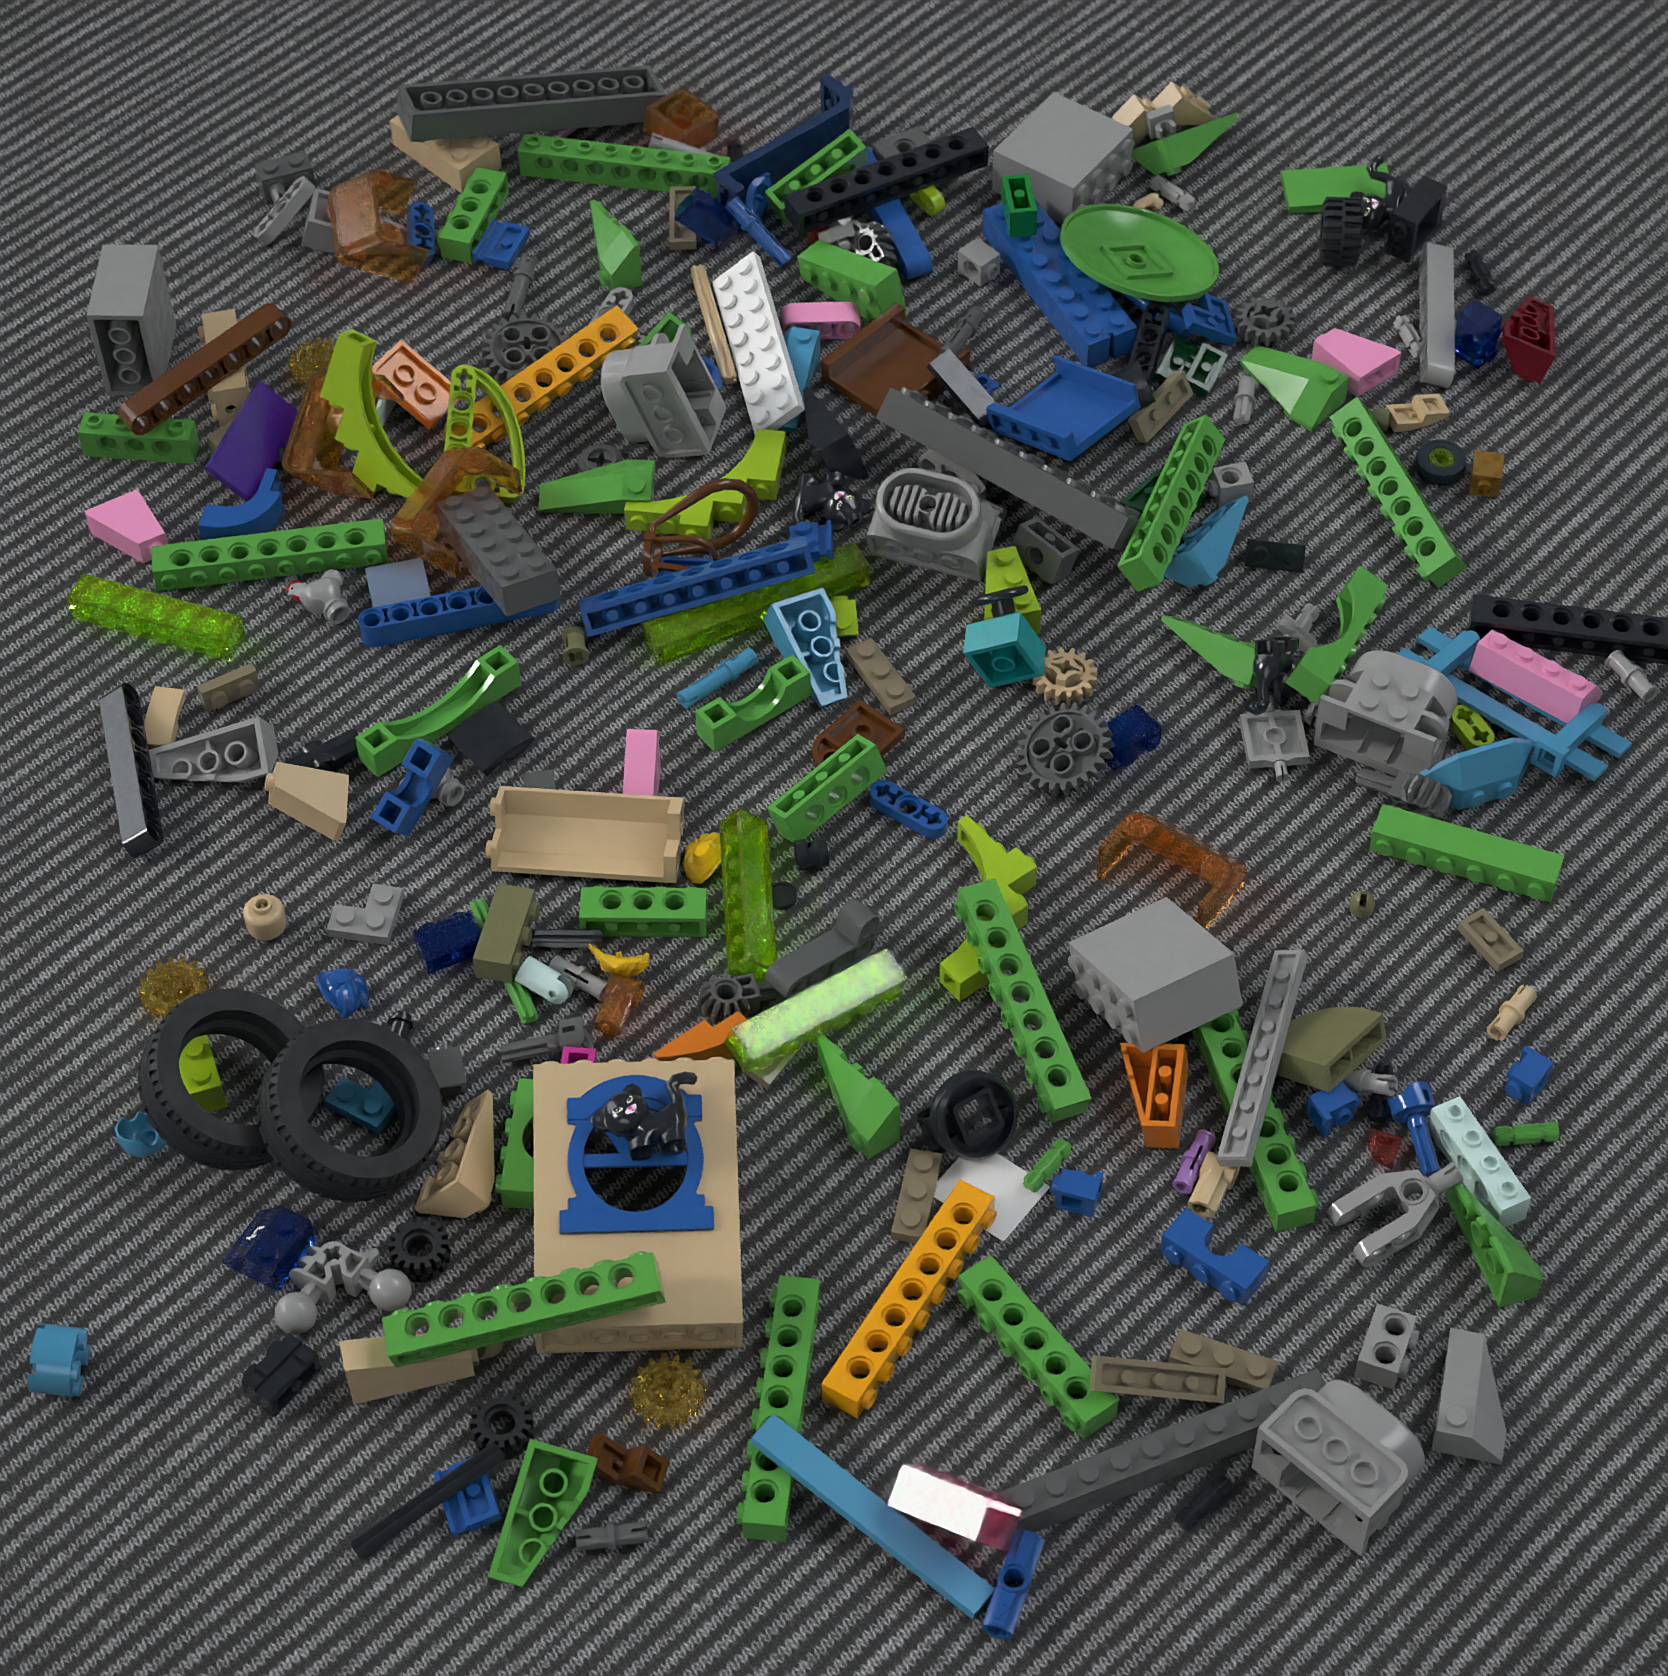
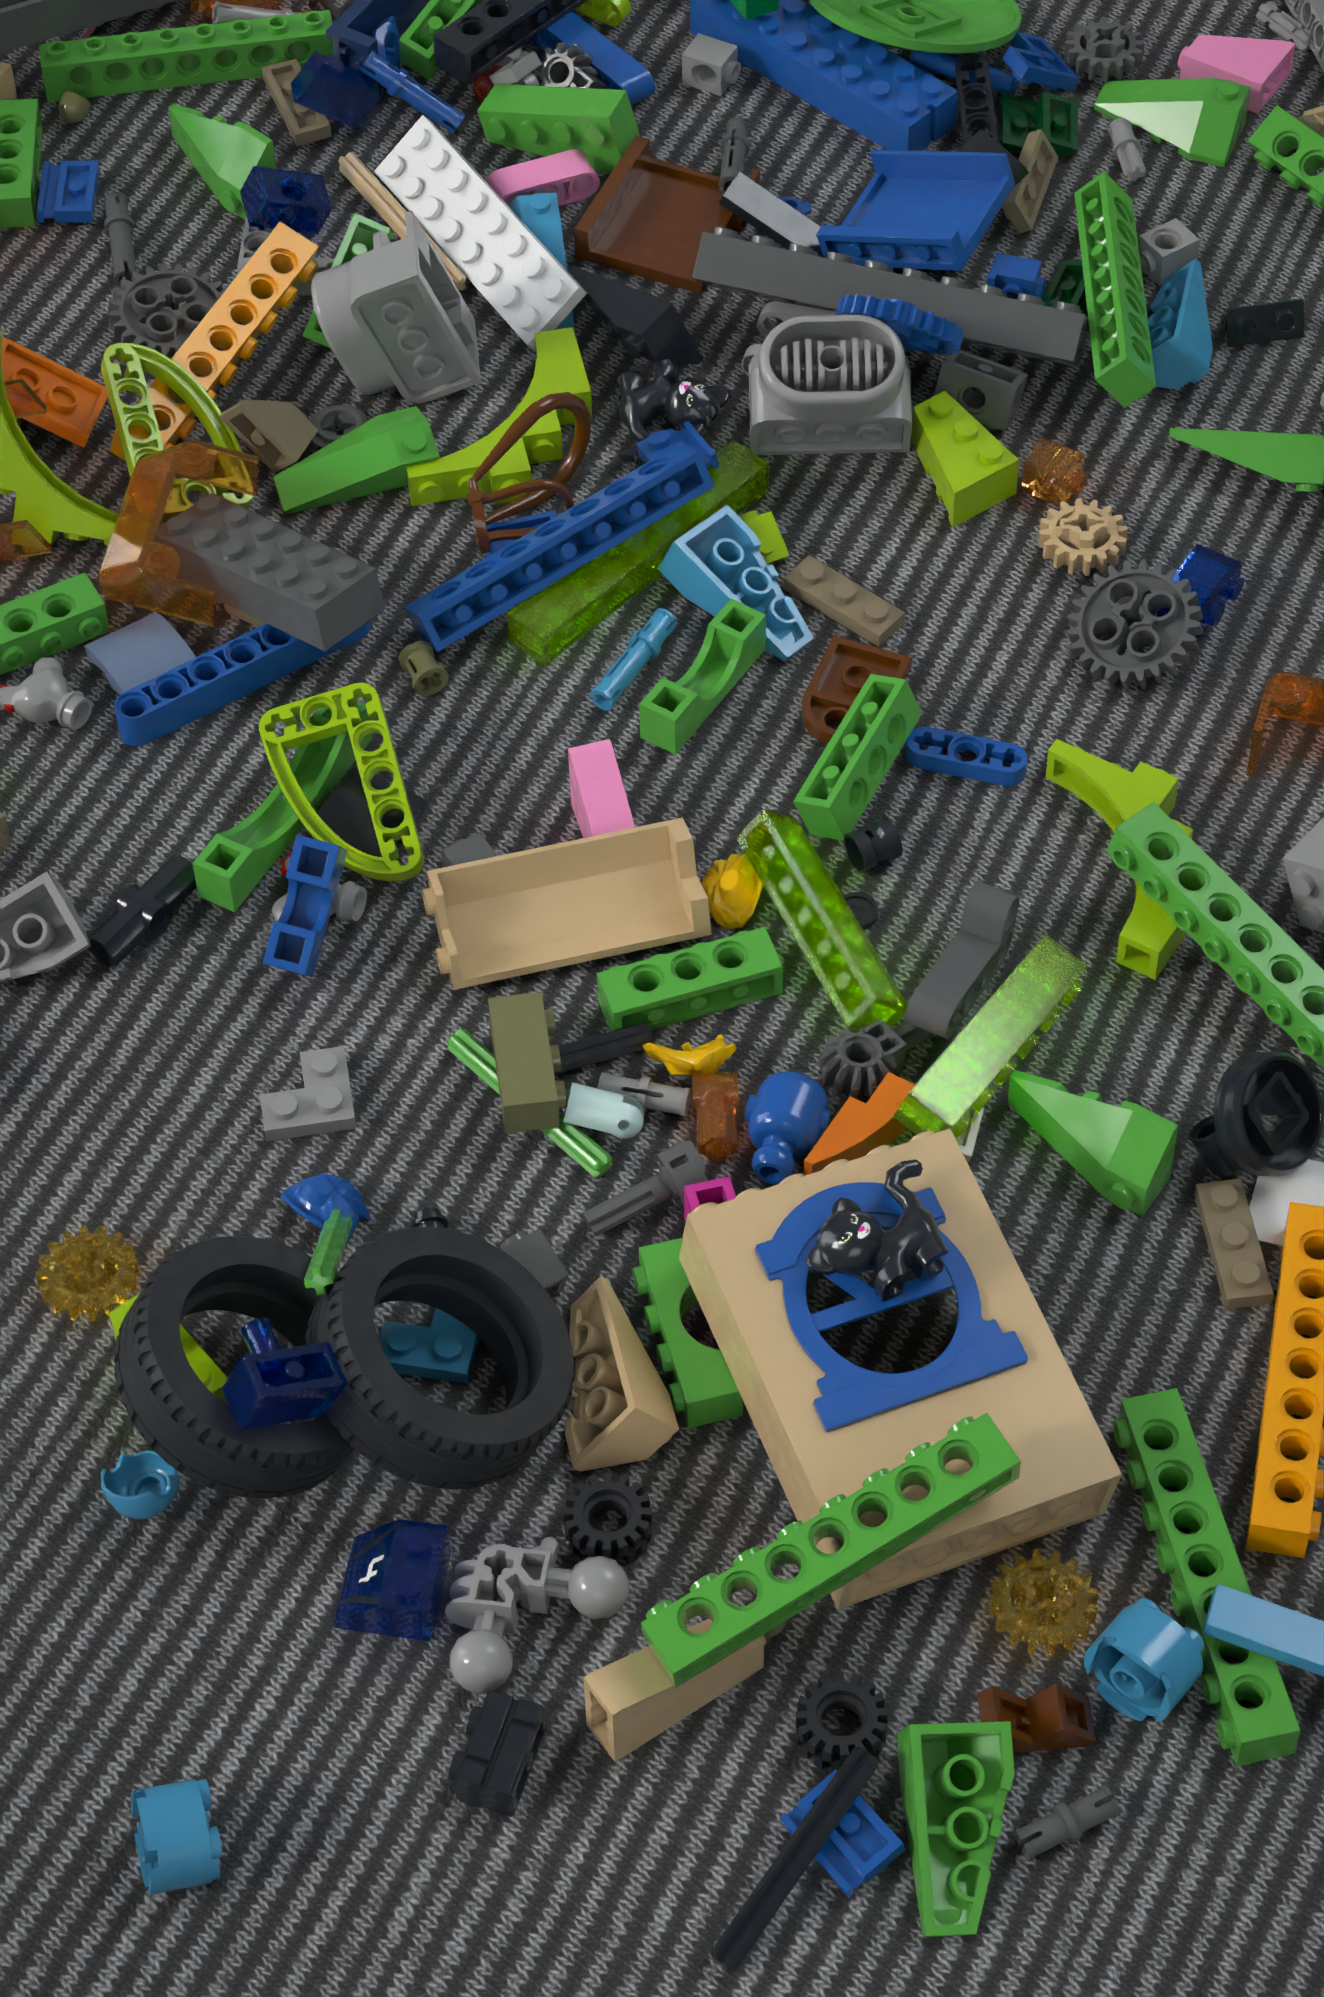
camera: 20 degrees left, 0 degrees up
(228, 1094) = (281, 1383): none -> clear blue brick
(265, 917) = (173, 1138): tan head -> none
(310, 796) = (163, 961): tan slope -> none
(322, 1012) = (328, 1252): none -> bright green axle
(447, 941) = (445, 1097): clear blue brick -> none
(499, 671) = (348, 719): none -> lime beam
(532, 184) = (73, 107): none -> olive hinge
(550, 451) = (271, 429): none -> dark tan slope
(636, 289) = (285, 197): none -> clear blue brick
(656, 1024) = (785, 1123): none -> blue piece
(708, 1449) = (1145, 1661): none -> dark azure brick
(995, 491) = (913, 326): none -> blue gear
(1004, 646) = (998, 511): teal piece -> none
(1067, 624) = (1053, 472): none -> clear orange brick
(1111, 478) = (1016, 276): none -> blue brick

